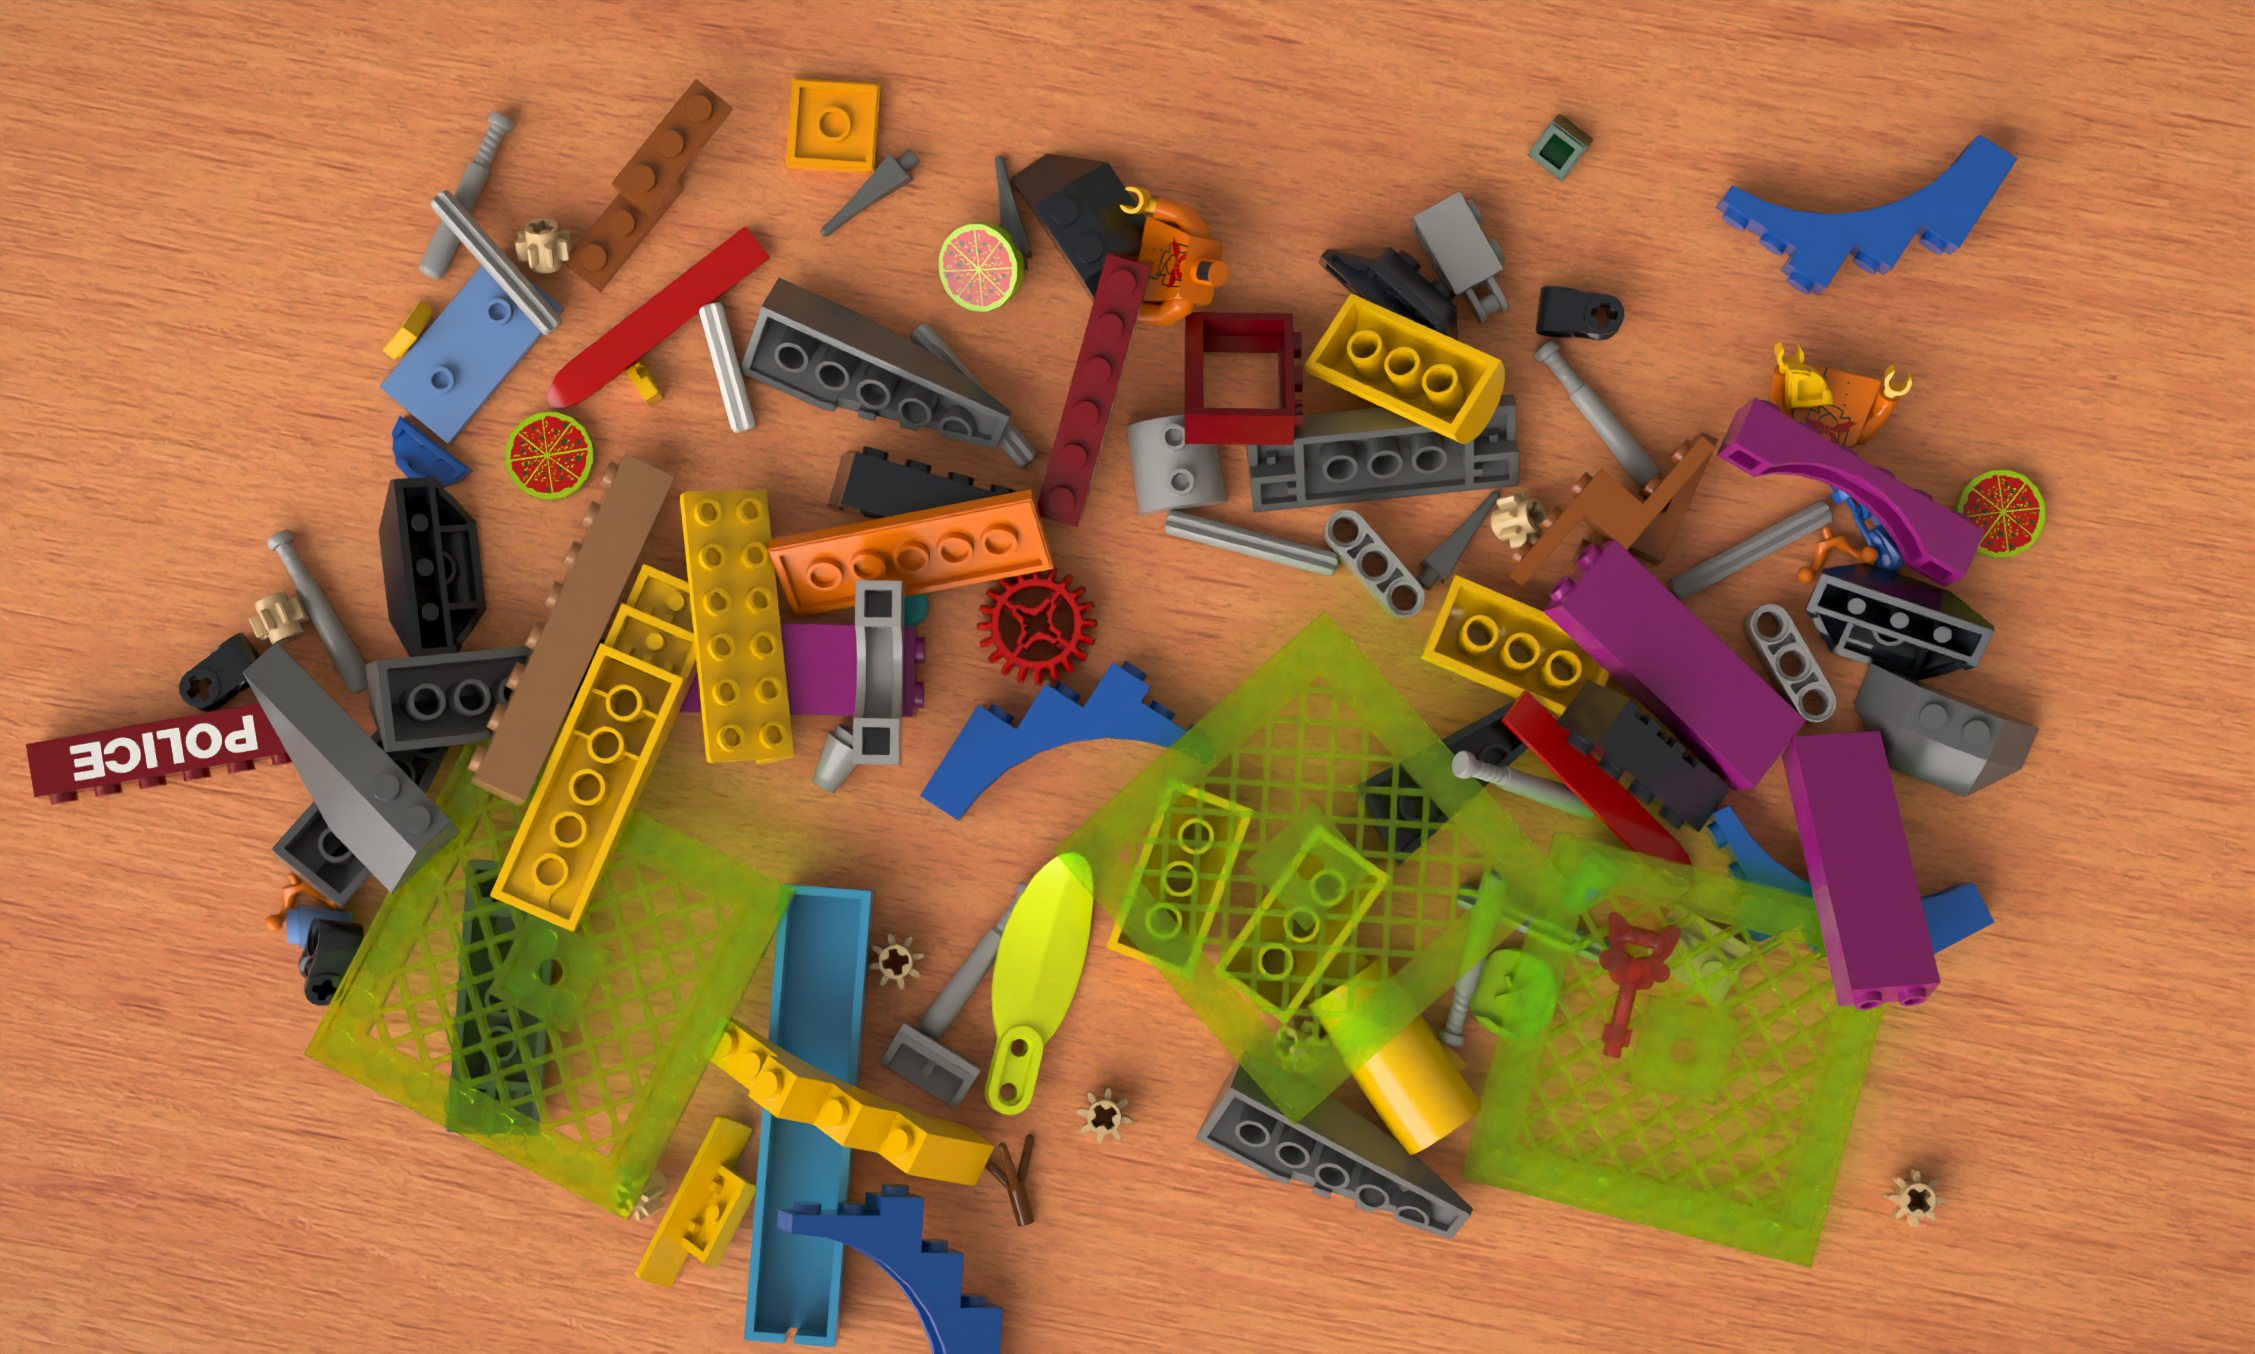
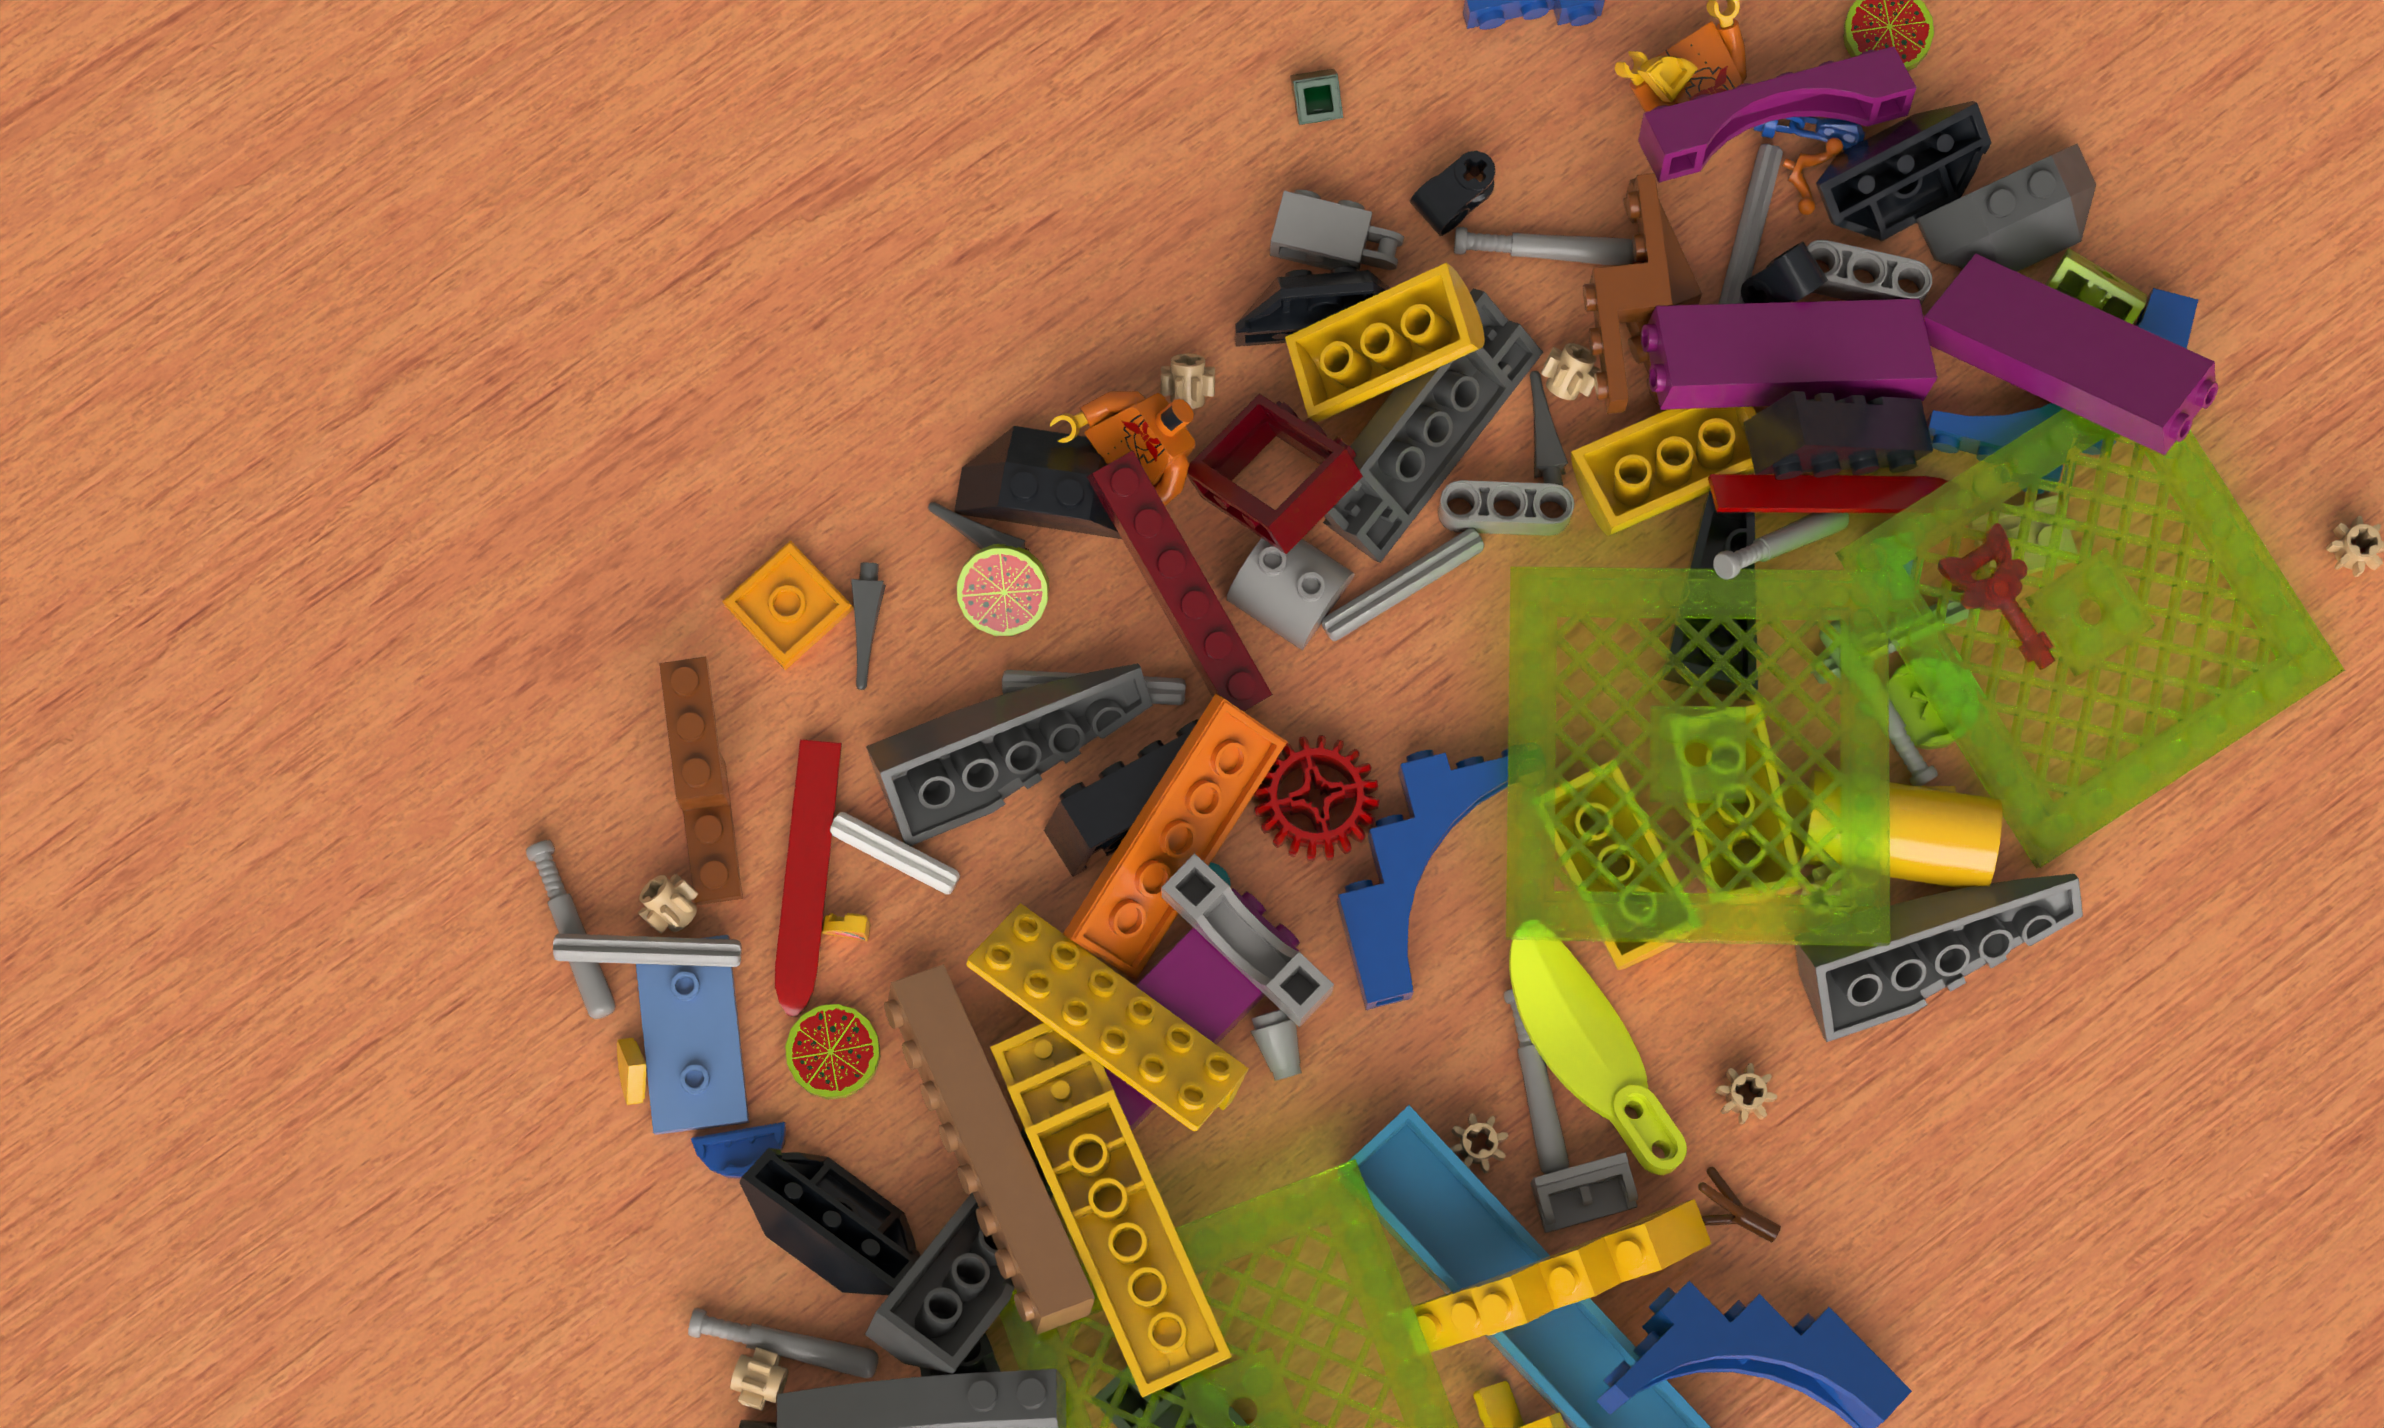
camera: 45 degrees left, 10 degrees down
(1256, 254) = (1188, 379): none -> tan gear
(1729, 613) = (1785, 278): none -> black piece
(1933, 842) = (2096, 287): none -> lime brick

